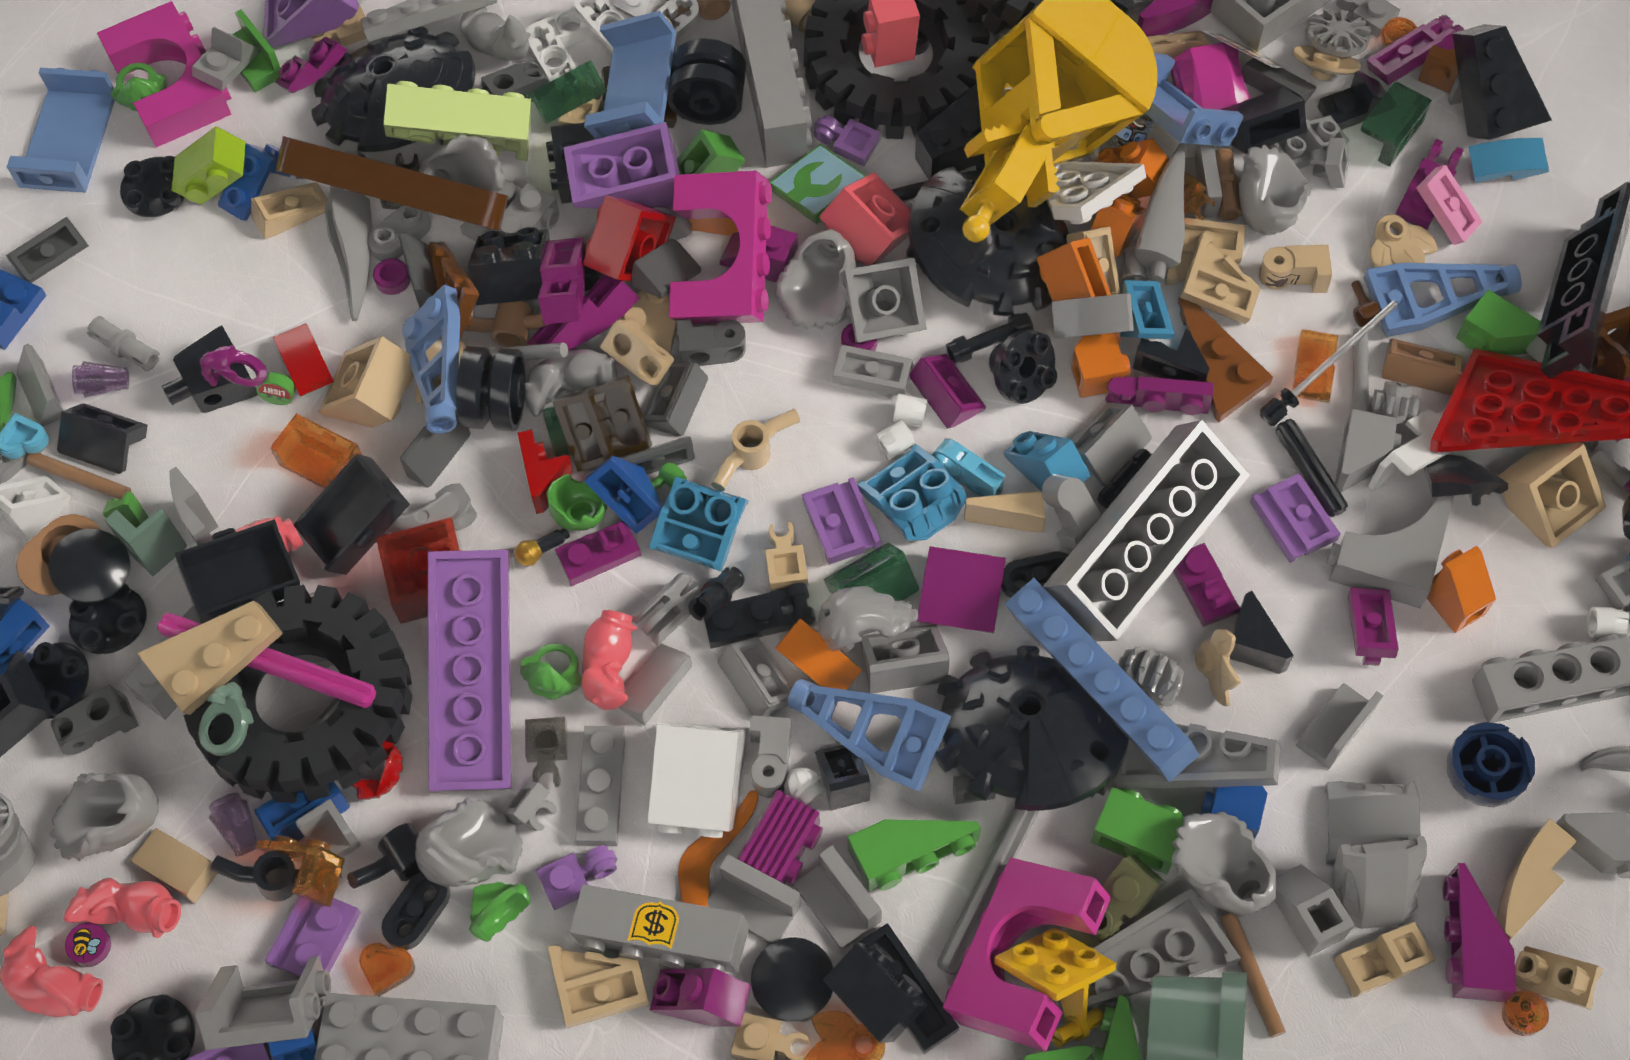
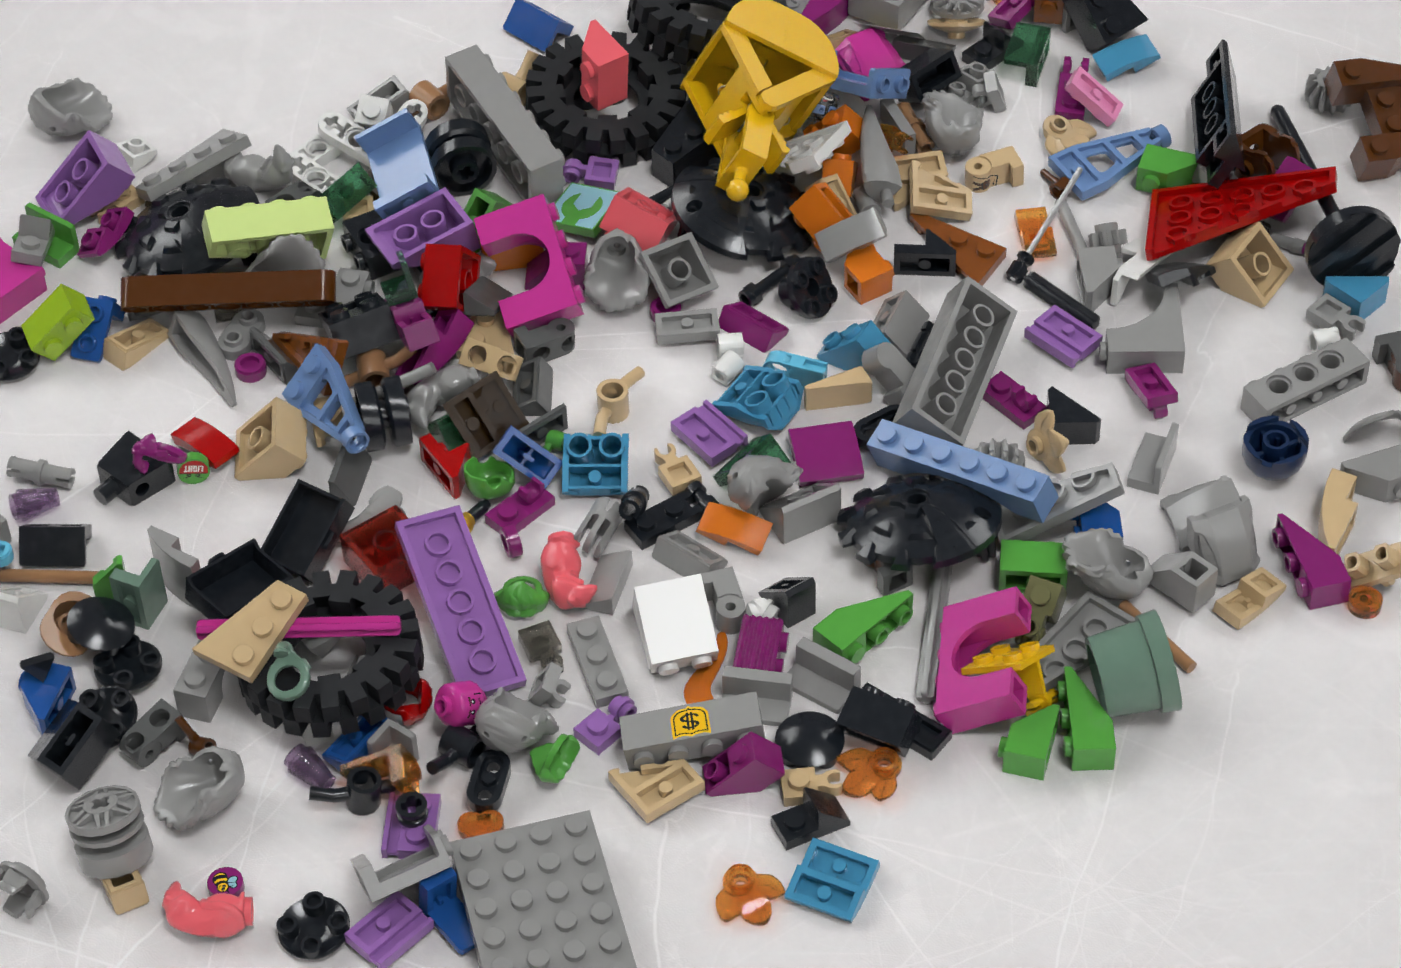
camera: 20 degrees left, 15 degrees down
(133, 744) = (196, 742): none -> reddish brown hand
(141, 905) = (261, 842): coral animal -> none
(175, 865) = (273, 811): tan slope -> none
(312, 451) = (250, 502): clear orange panel -> none
(317, 936) = (414, 819): none -> black bush
(414, 803) = (458, 703): none -> dark pink head
(567, 595) = (511, 541): none -> magenta tile
(569, 233) = (399, 288): none -> clear green panel
(914, 743) = (838, 552): medium blue plate -> none
(1148, 311) = (896, 226): dark azure slope -> none
(1161, 394) = (925, 280): magenta hinge -> none
(1422, 366) = (1126, 212): medium nougat slope -> none
(1462, 589) = (1208, 343): orange slope -> none

